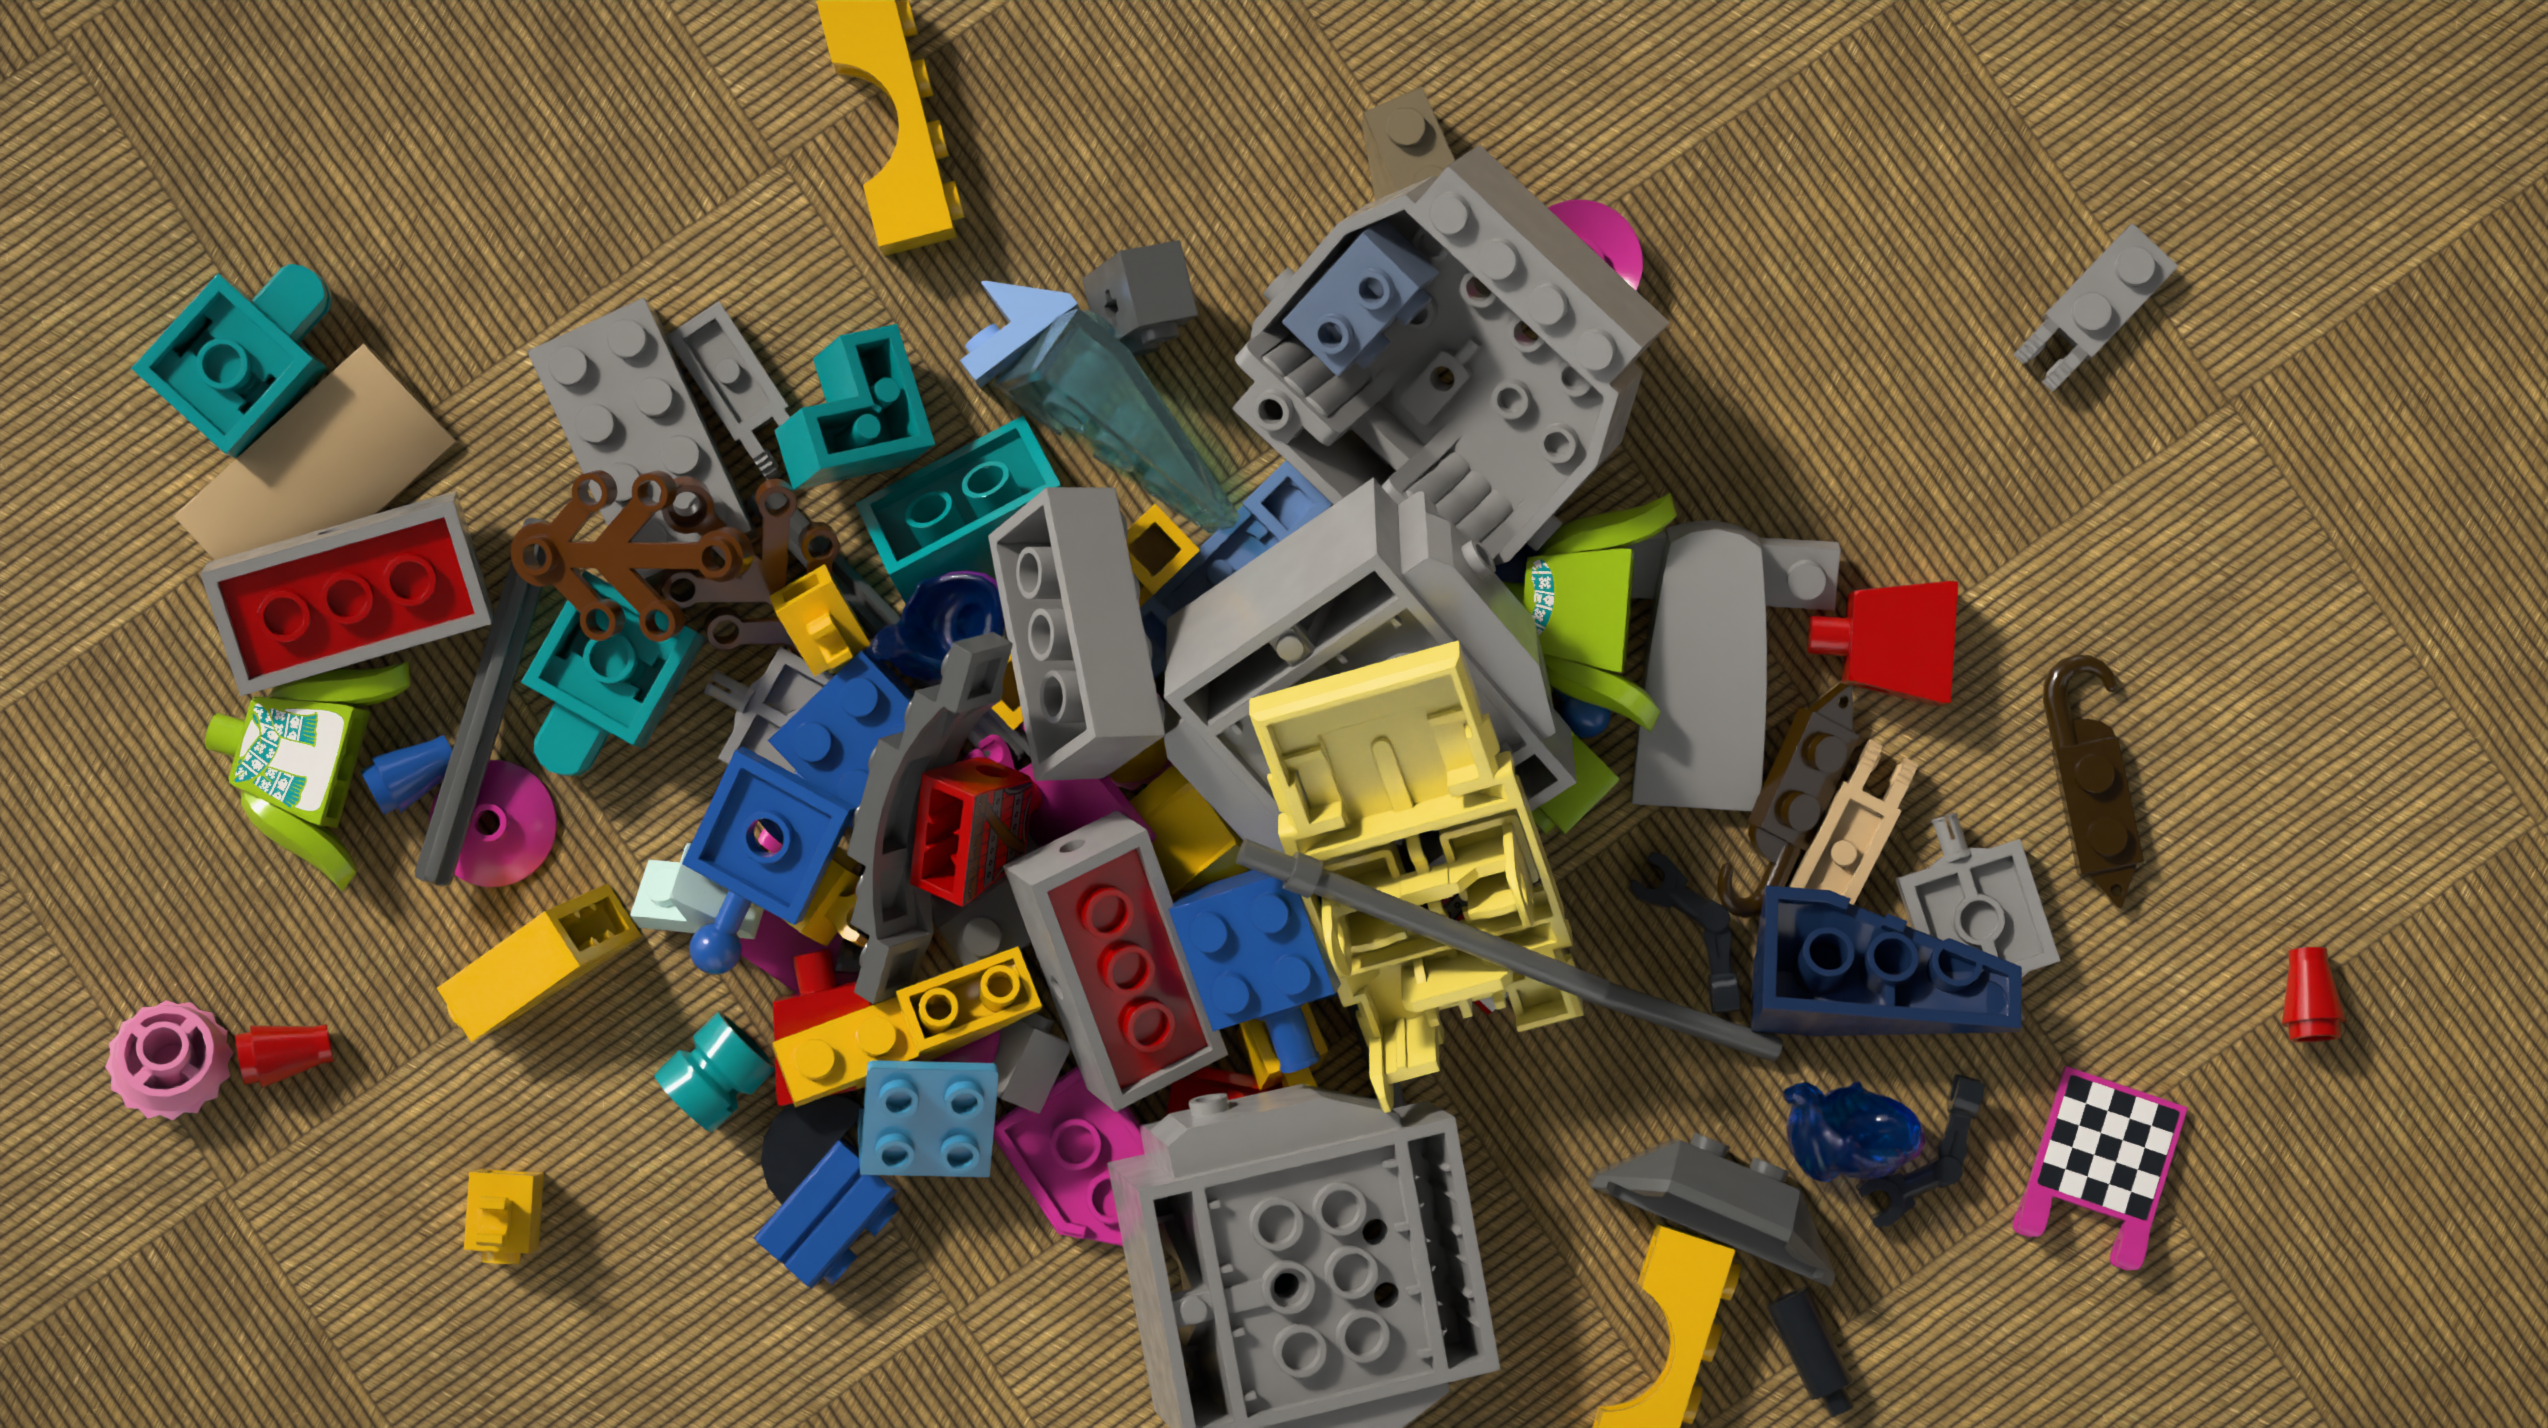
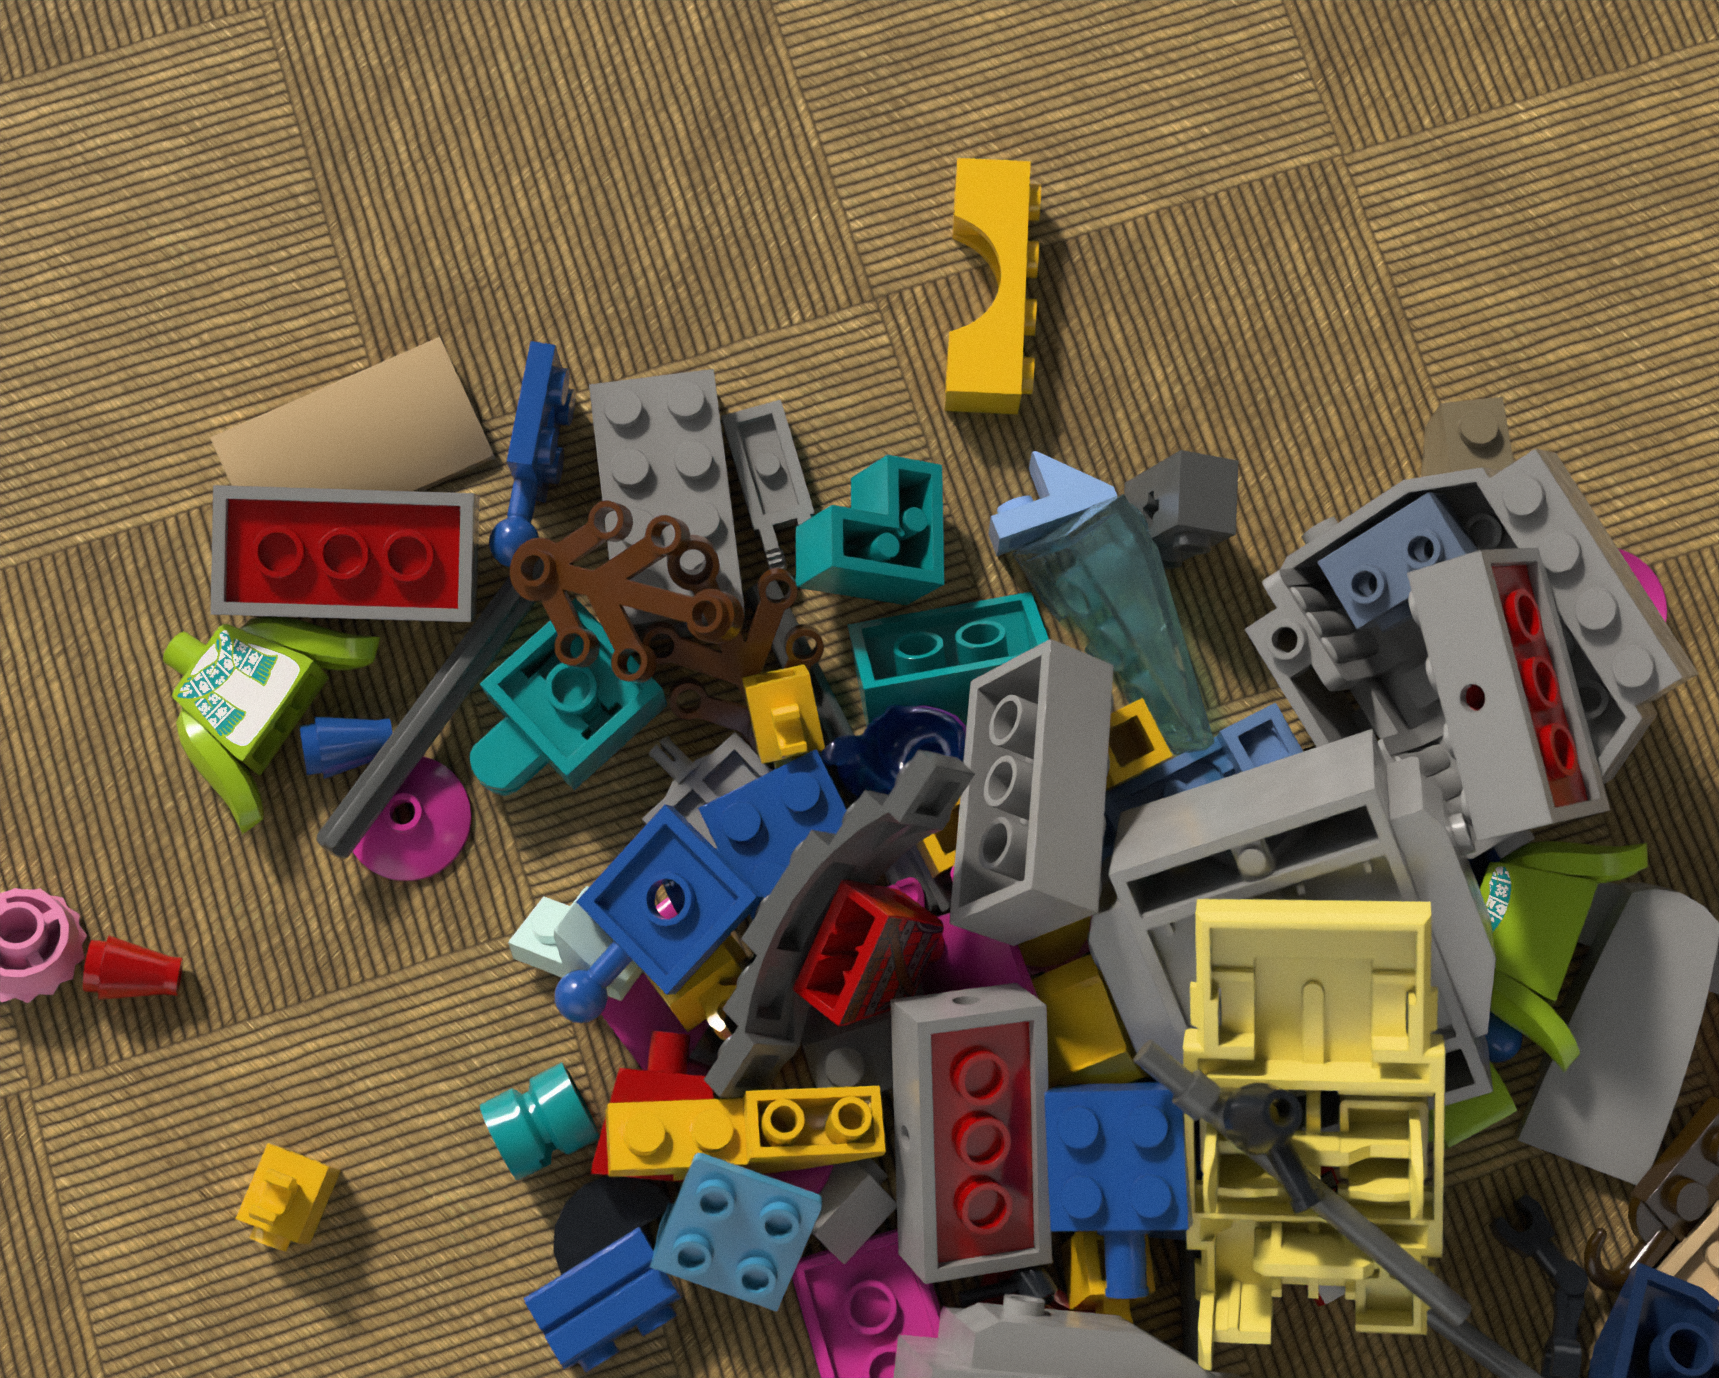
camera: 15 degrees right, 10 degrees down
(238, 359) = (319, 293): teal brick -> none
(496, 433) = (533, 450): none -> blue plate
(538, 961) = (404, 959): yellow slope -> none
(1211, 1079) = (1026, 1281): none -> black hand
(1361, 895) = (1254, 1132): none -> black bar
(1485, 412) = (1506, 691): none -> light grey brick

